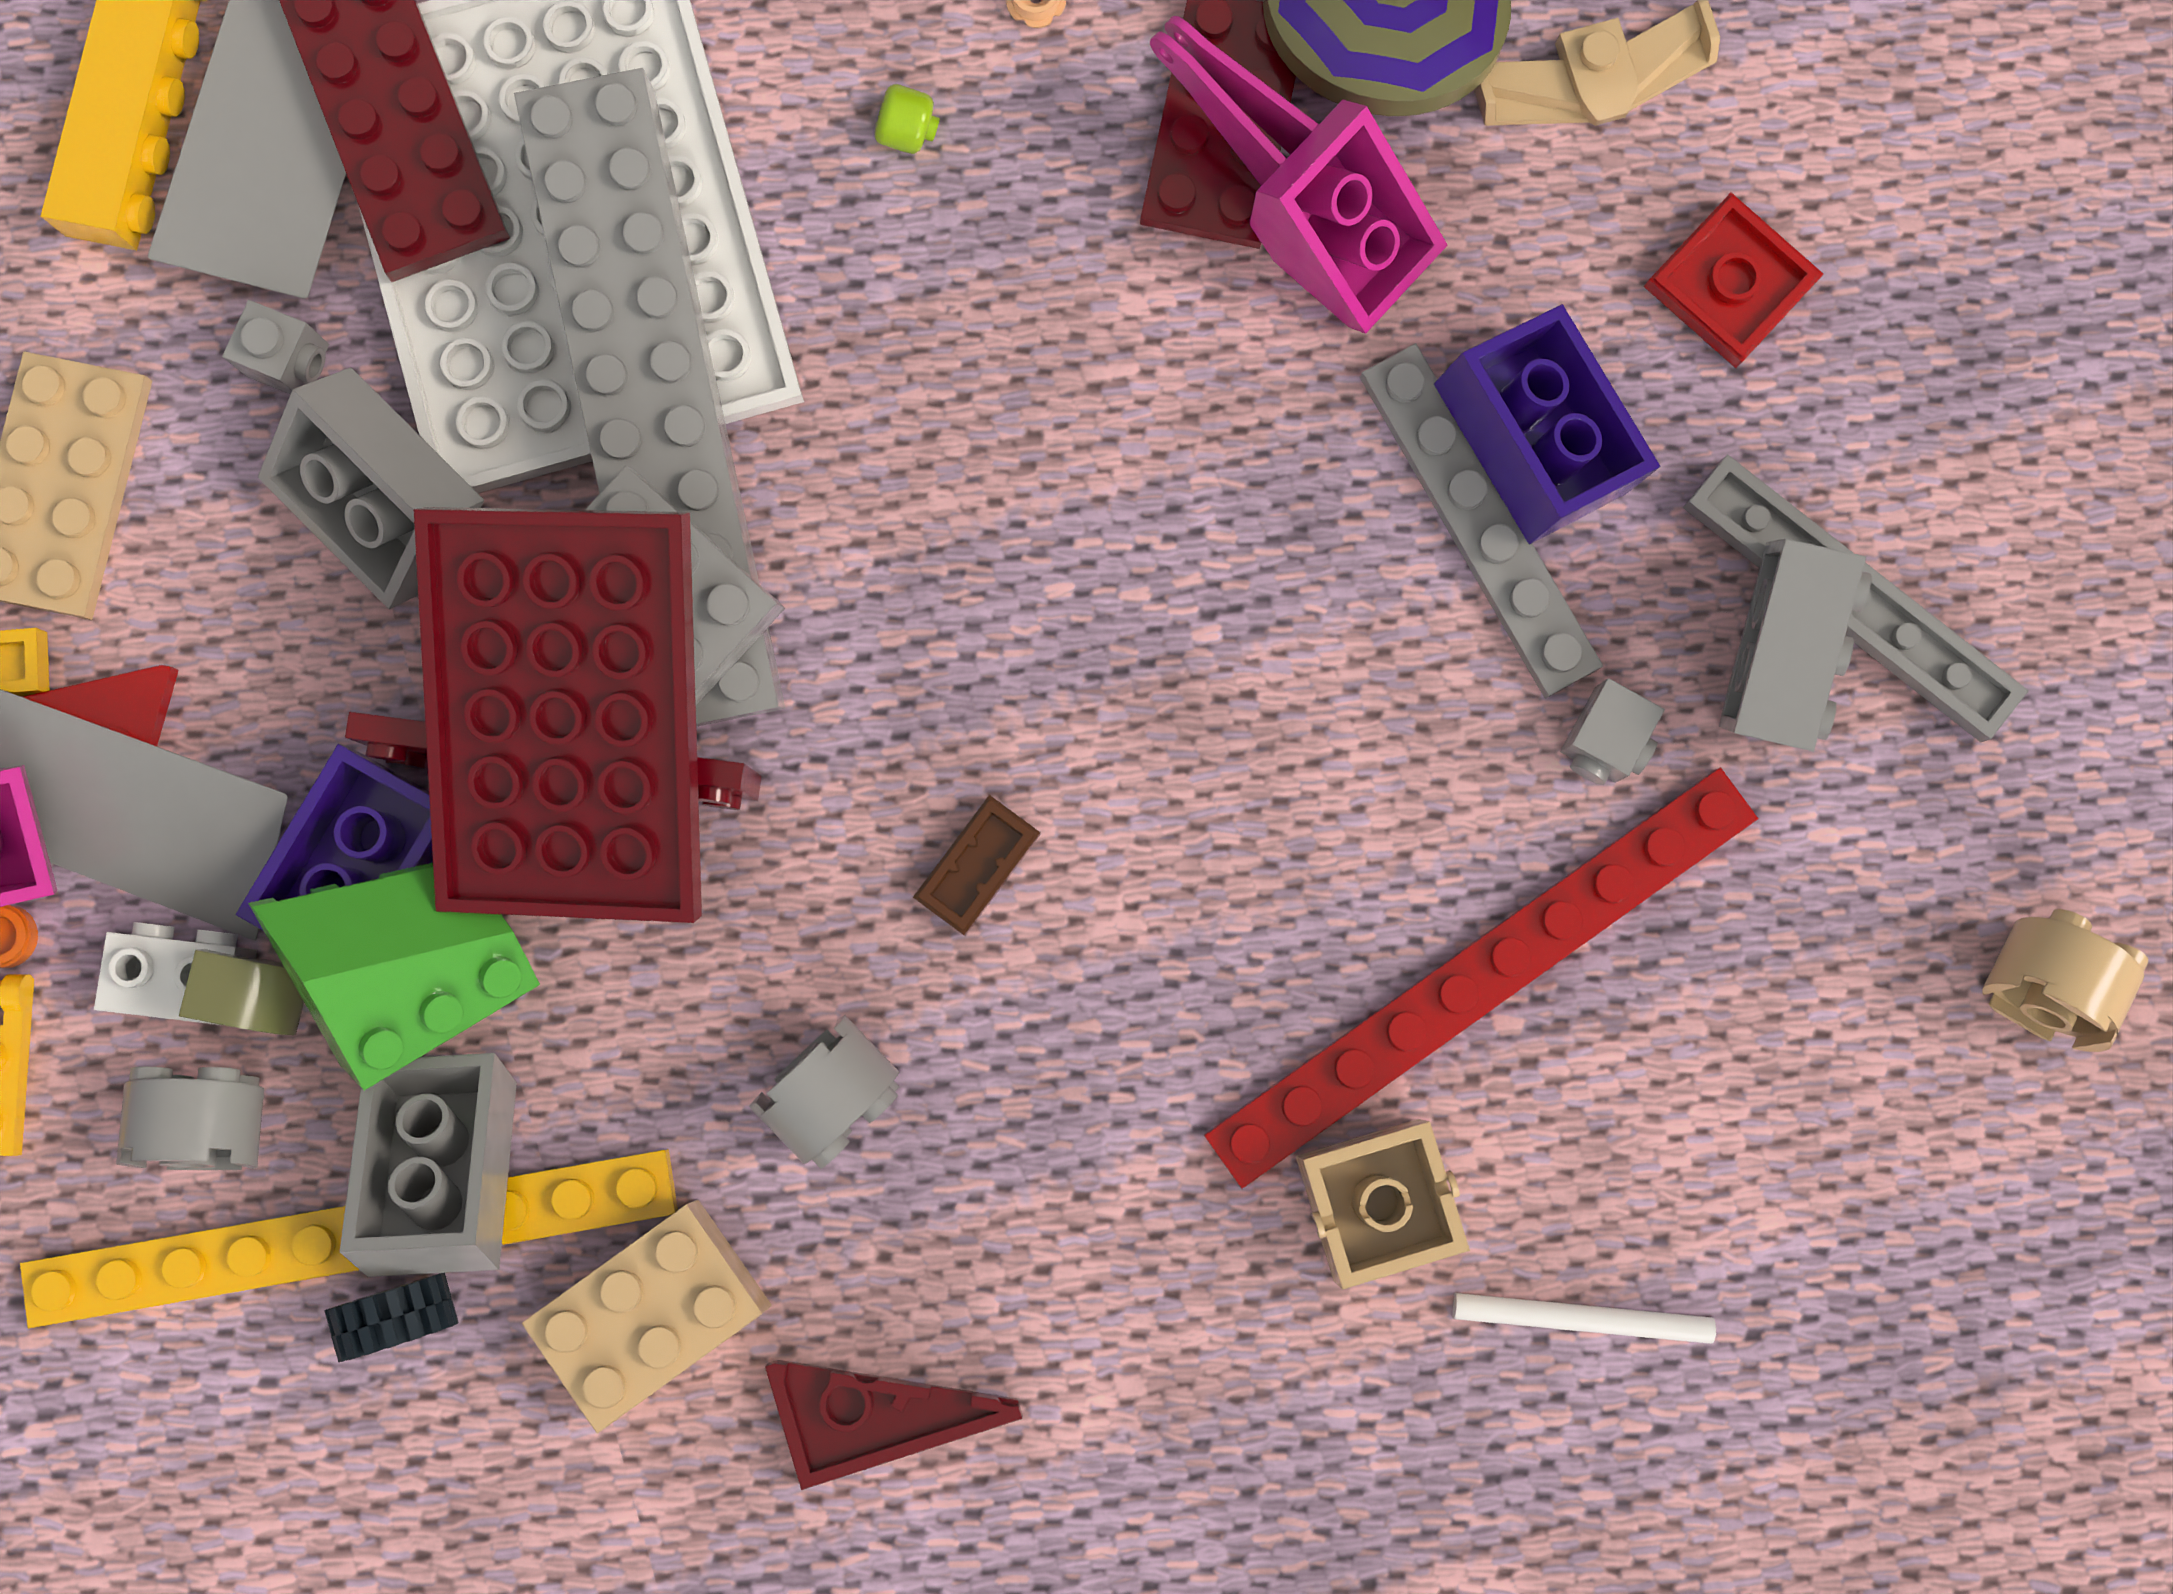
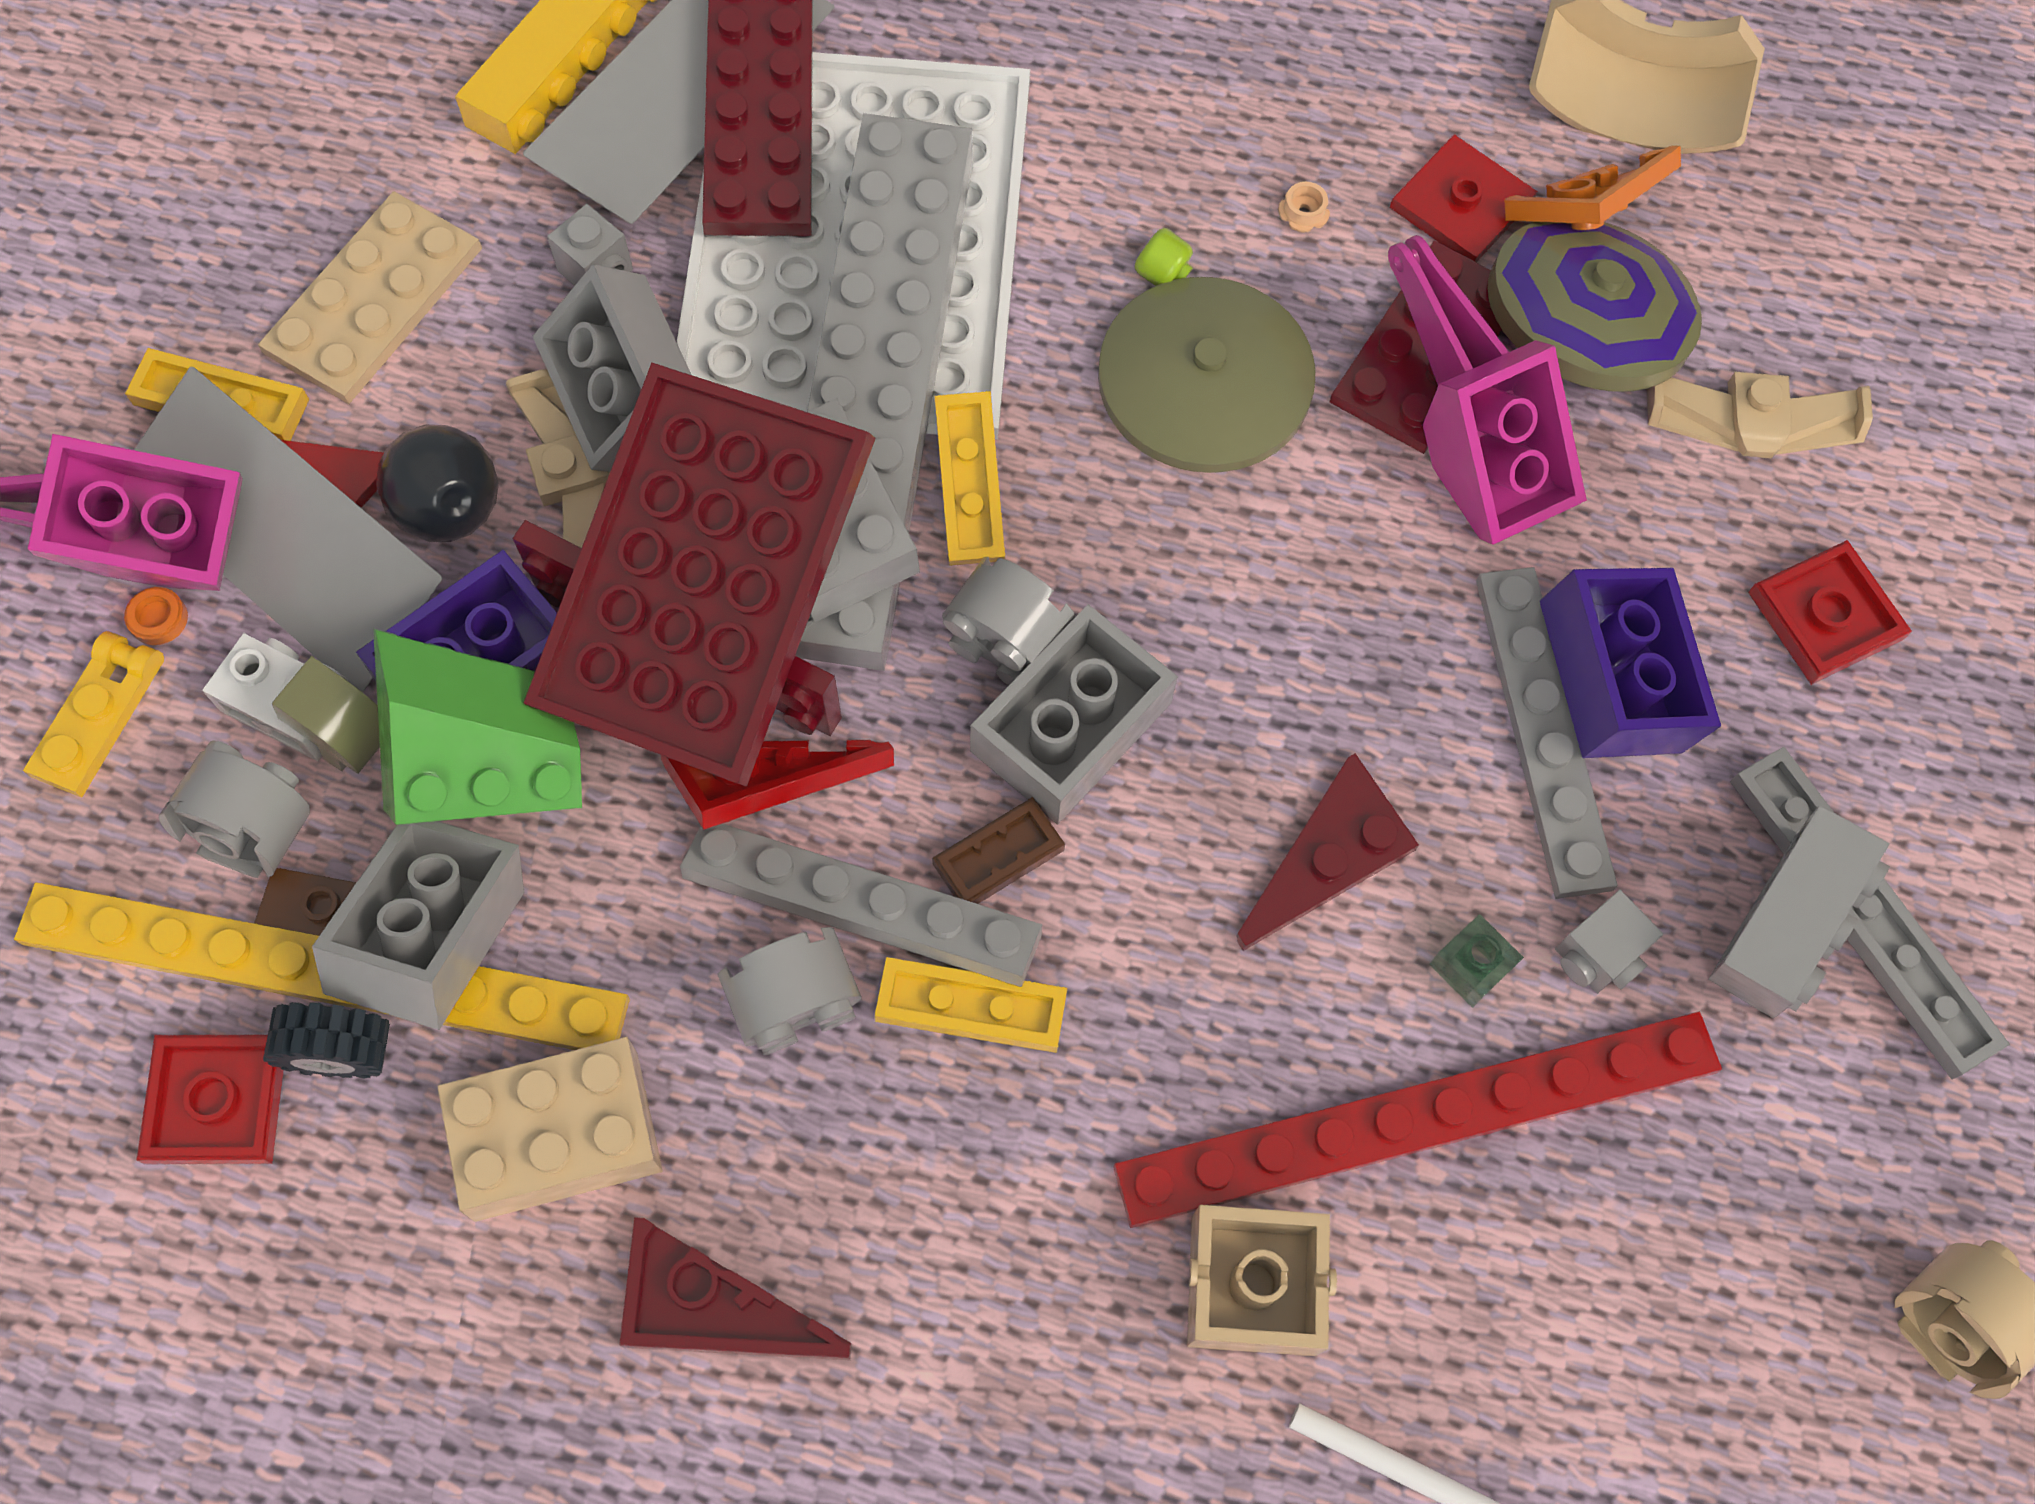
camera: 20 degrees right, 15 degrees down
(232, 689) = (437, 483): none -> black piece
(301, 1411) = (210, 1101): none -> red plate
(303, 1179) = (301, 901): none -> reddish brown plate
(352, 611) = (559, 462): none -> tan plate
(737, 857) = (780, 775): none -> red wing
(792, 466) = (969, 477): none -> yellow plate
(858, 969) = (863, 902): none -> light grey plate
(894, 617) = (1004, 617): none -> light grey brick
(998, 240) = (1206, 374): none -> olive dish
(998, 692) = (1072, 713): none -> light grey brick
(1007, 1031) = (970, 1005): none -> yellow plate
(1316, 722) = (1340, 846): none -> dark red wing
(1467, 804) = (1464, 973): none -> clear green plate

